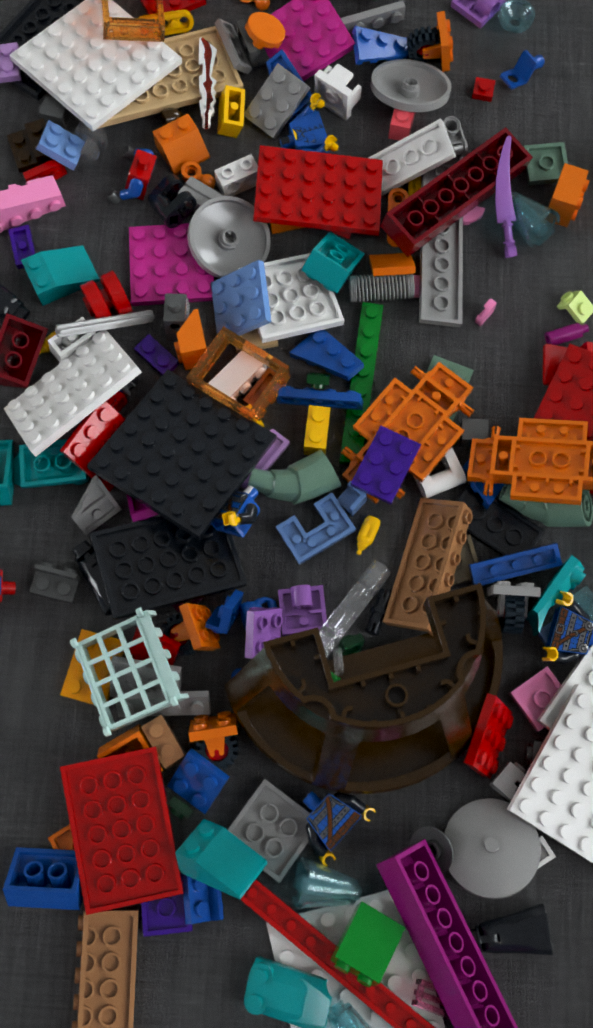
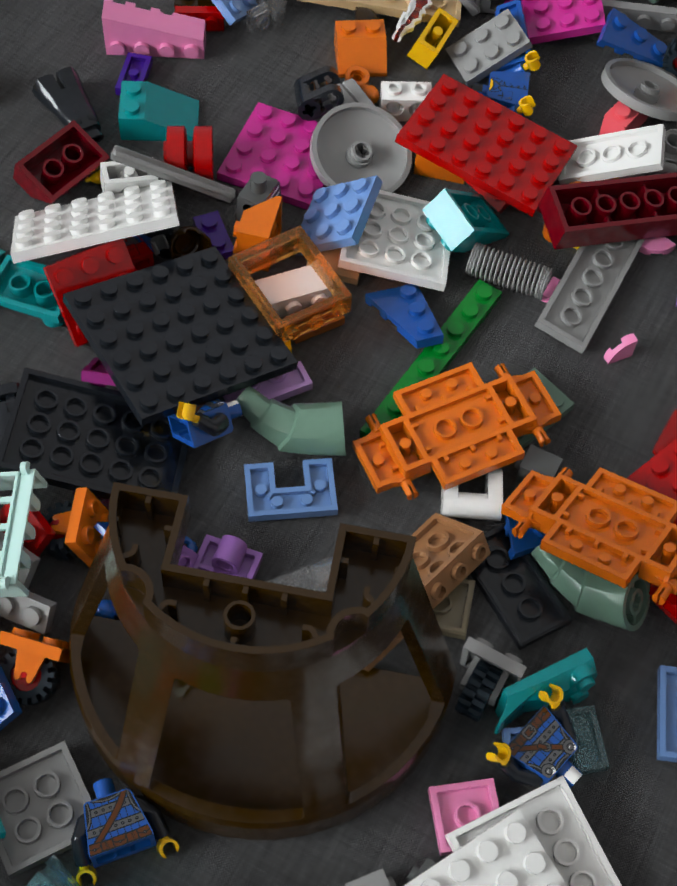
camera: 20 degrees right, 15 degrees down
(94, 507) = (52, 350): light grey wing -> none
(138, 176) = (296, 57): torso -> none
(151, 373) = (187, 241): none -> dark brown hair
(316, 429) = (352, 383): yellow brick -> none
(318, 380) = (381, 331): dark green plate -> none
(326, 398) = (372, 351): blue plate -> none
(333, 90) = (557, 64): white panel -> none
(352, 499) = (352, 477): medium blue panel -> none
(367, 533) = (358, 516): yellow piece -> none
(385, 465) = (408, 448): dark purple plate -> none
(391, 264) = (532, 252): orange tile -> none
(489, 737) = (368, 819): red plate -> none
(515, 564) = (513, 635): blue plate -> none

